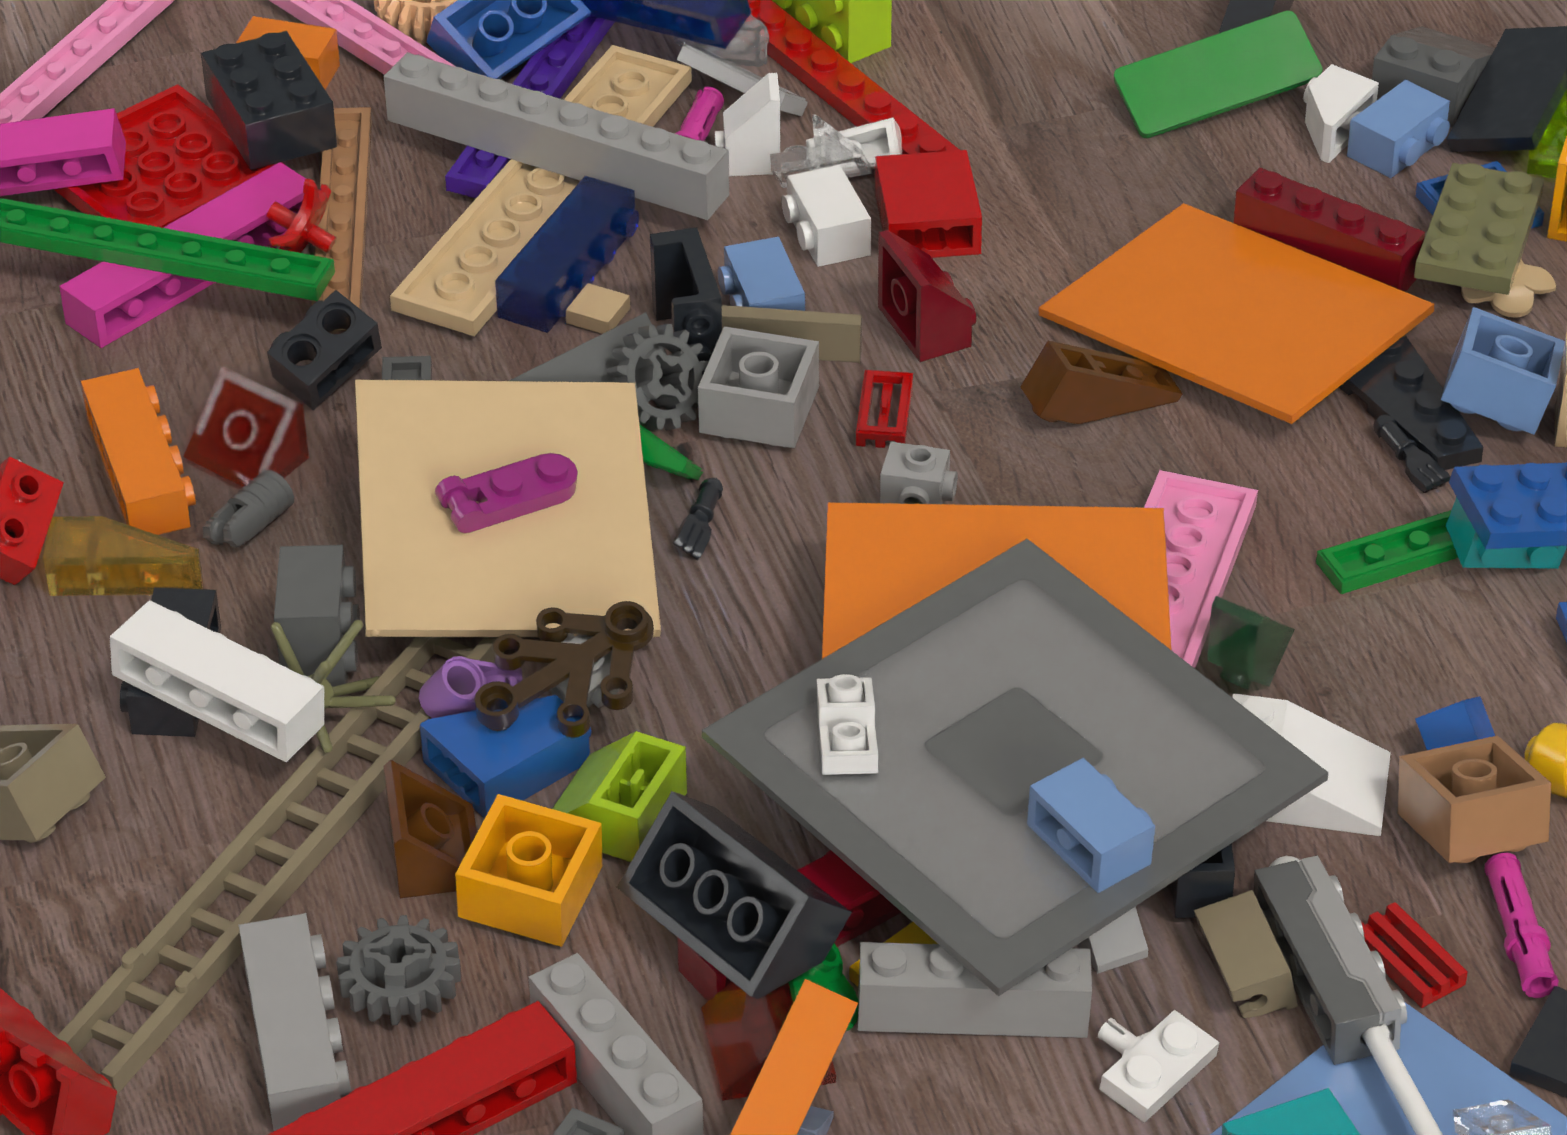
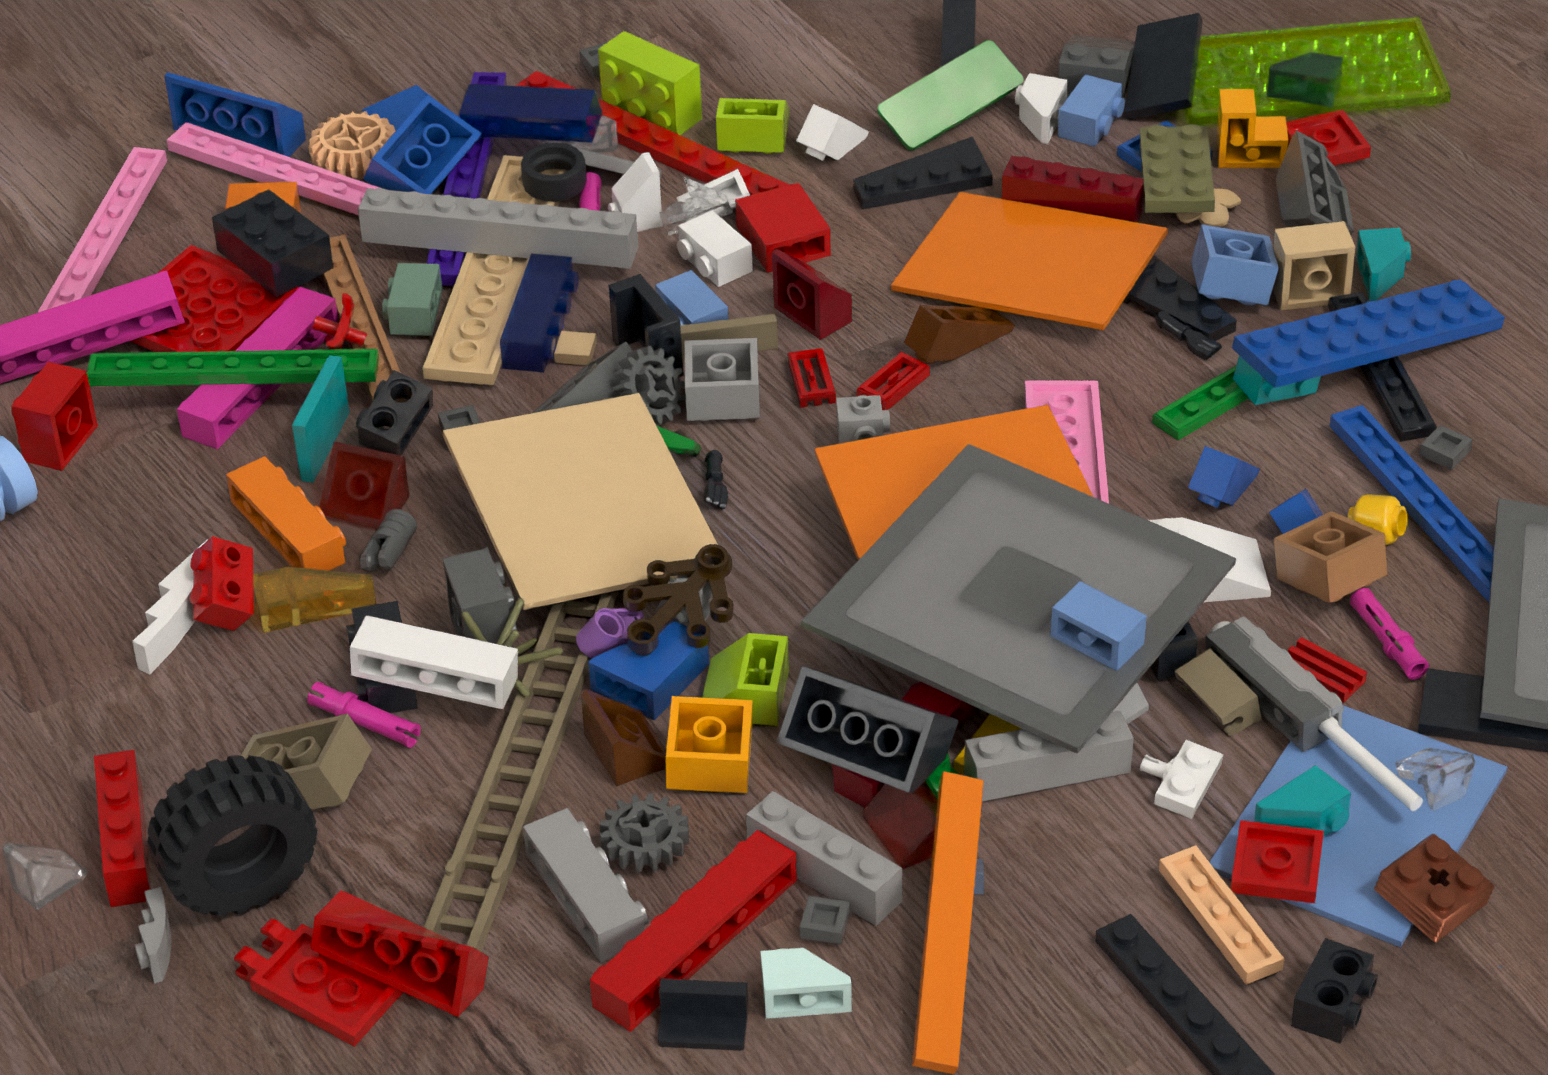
camera: 15 degrees left, 0 degrees up
(104, 718) = (364, 714): none -> dark pink pin
(228, 332) = (320, 418): none -> teal tile
(417, 205) = (413, 299): none -> sand green brick
(508, 491) = (585, 486): magenta plate -> none
(659, 57) = (549, 157): none -> black tyre
(847, 725) = (902, 595): white slope -> none
(943, 64) = (752, 125): none -> lime slope
(994, 441) = (898, 383): none -> red tile
(1039, 96) = (829, 134): none -> white slope
(1156, 173) = (932, 174): none -> black wing
(1245, 643) = (1137, 485): clear green slope -> none
(1372, 656) = (1221, 477): none -> blue slope

